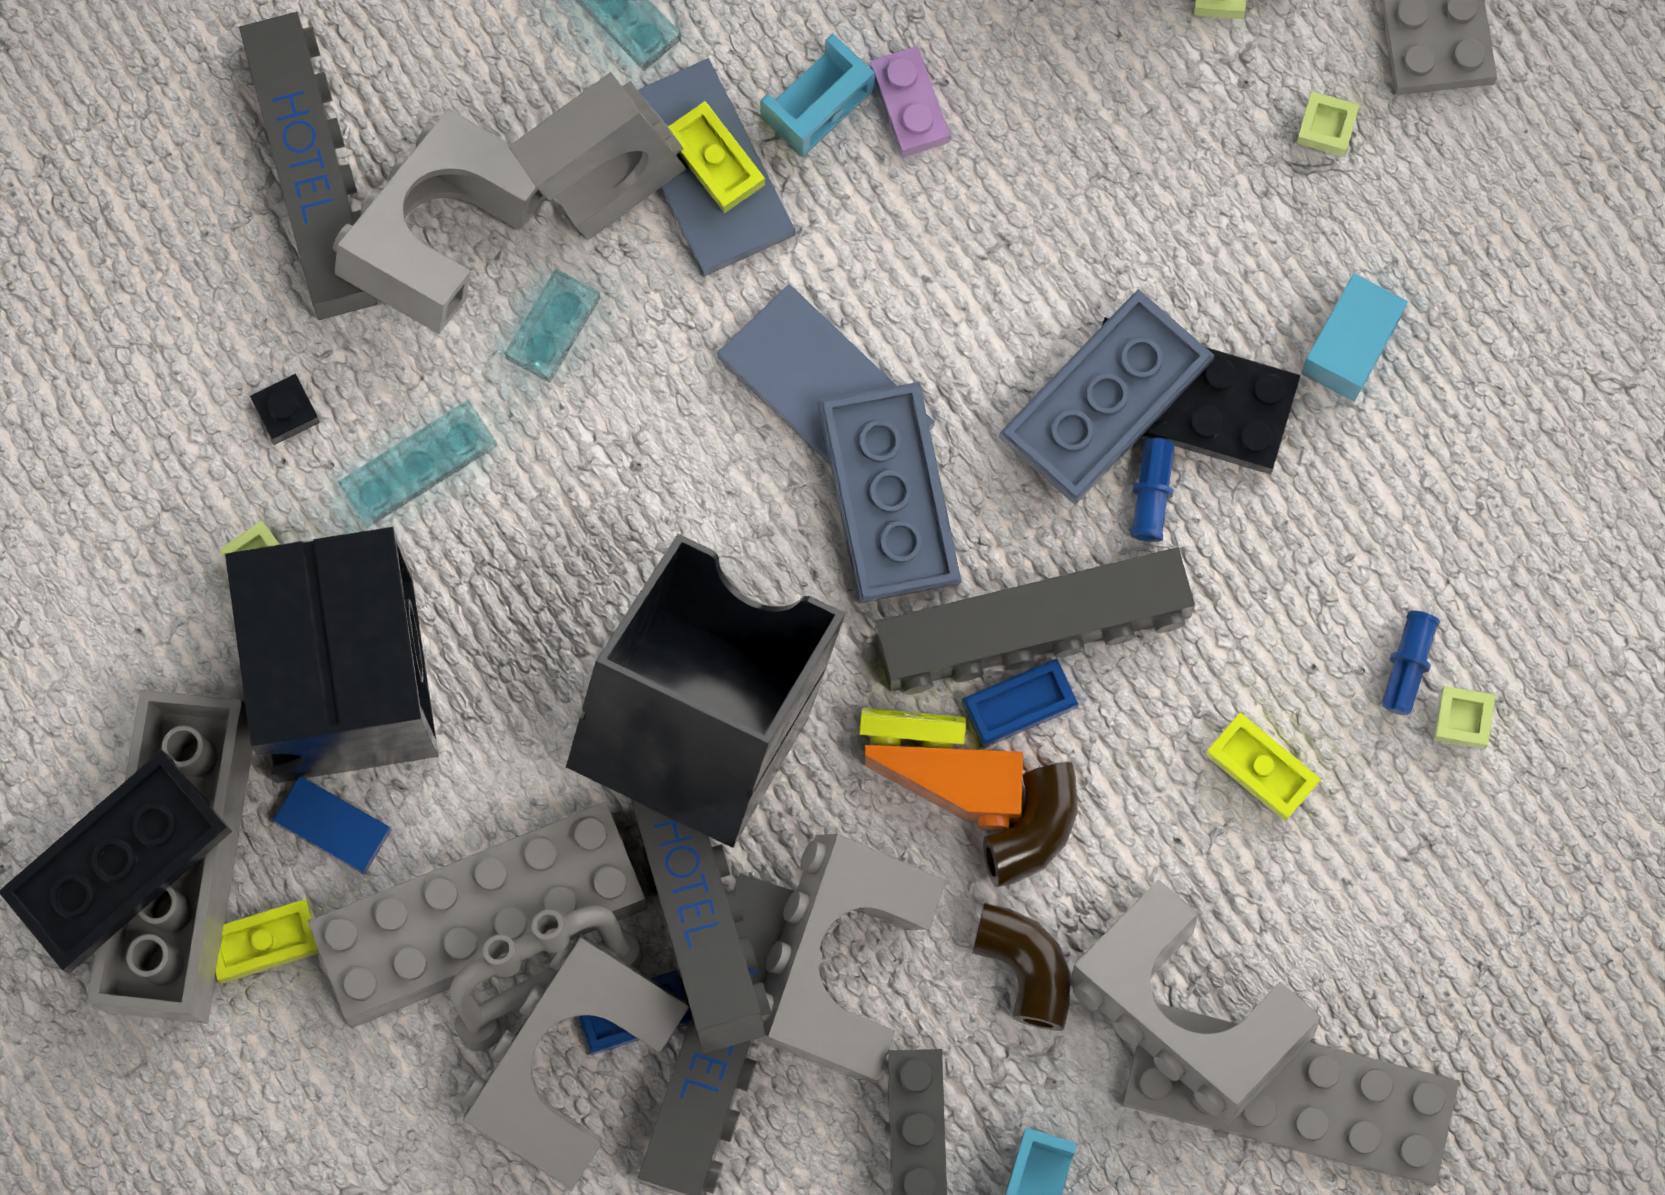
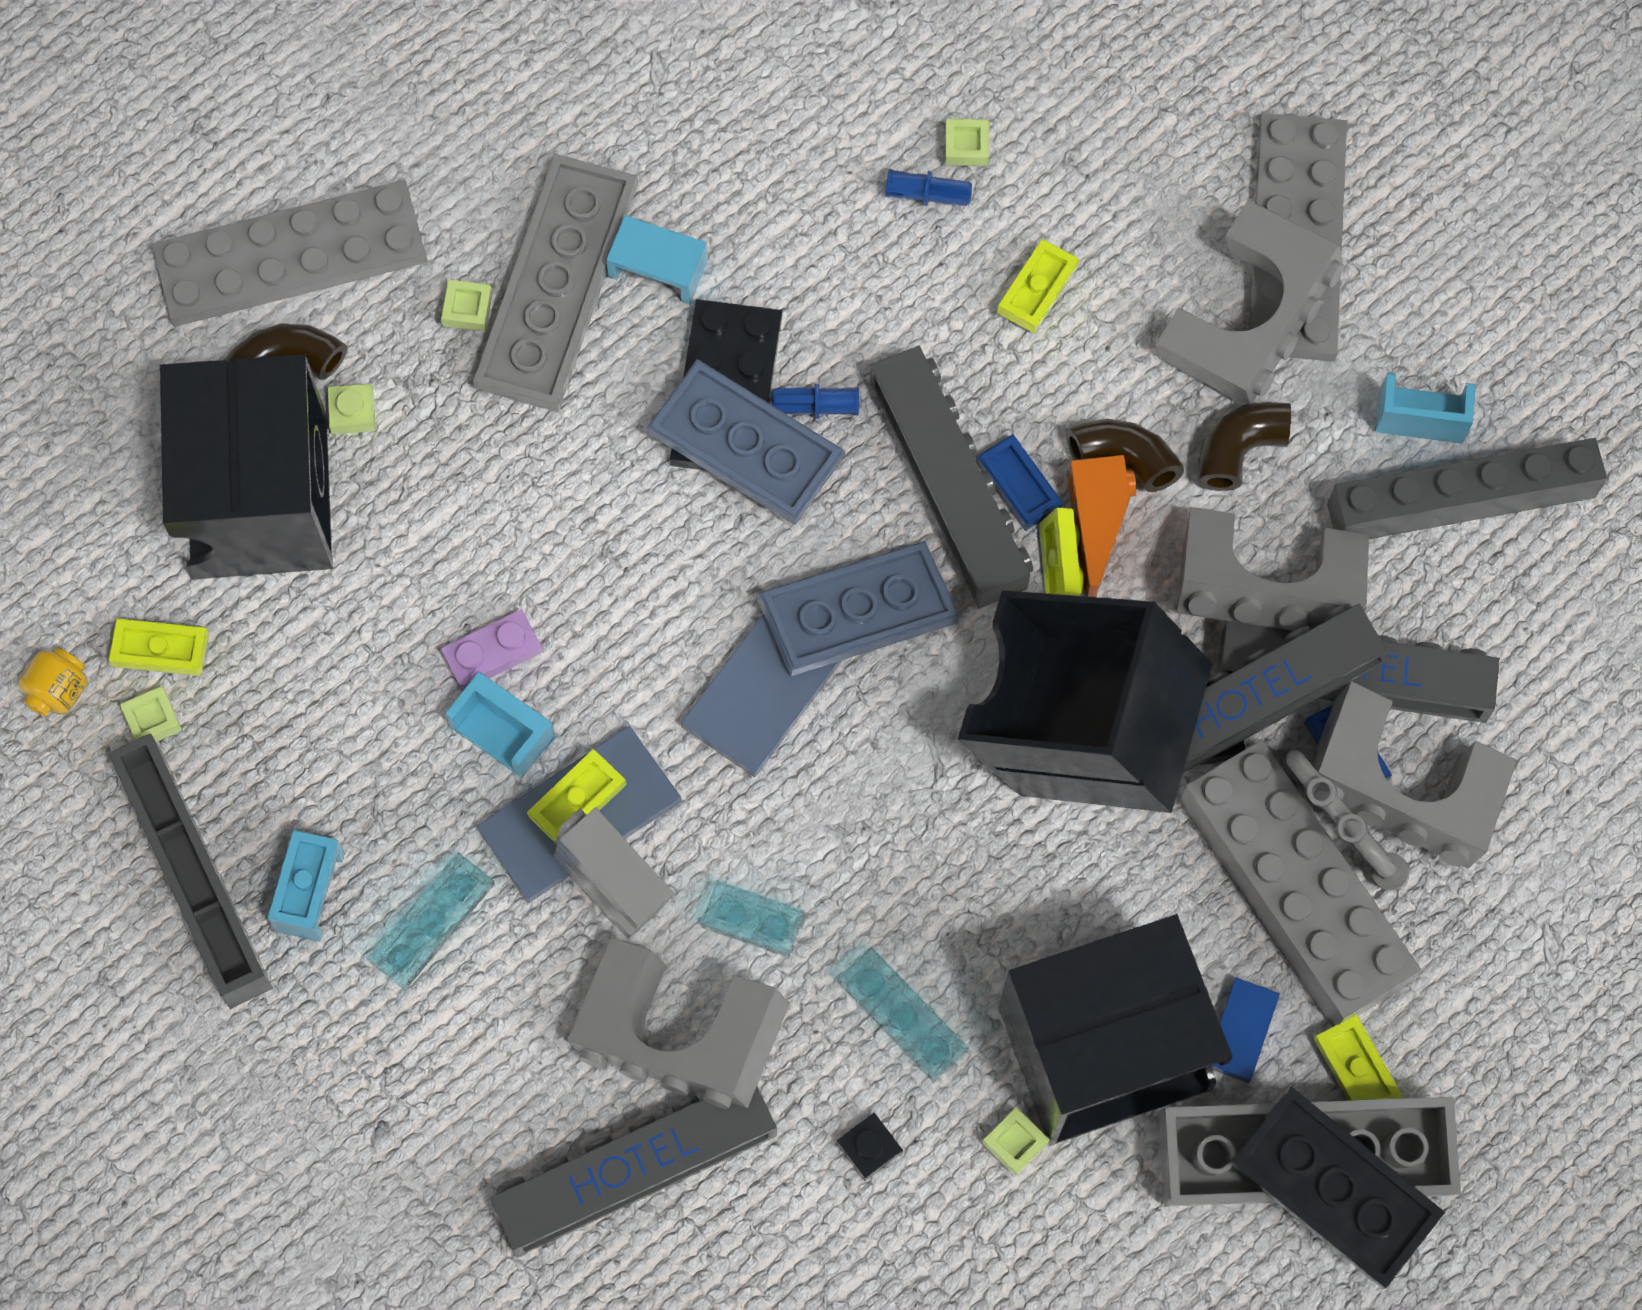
camera: 100 degrees left, 5 degrees down
(1344, 223) = (555, 283): none -> light grey plate

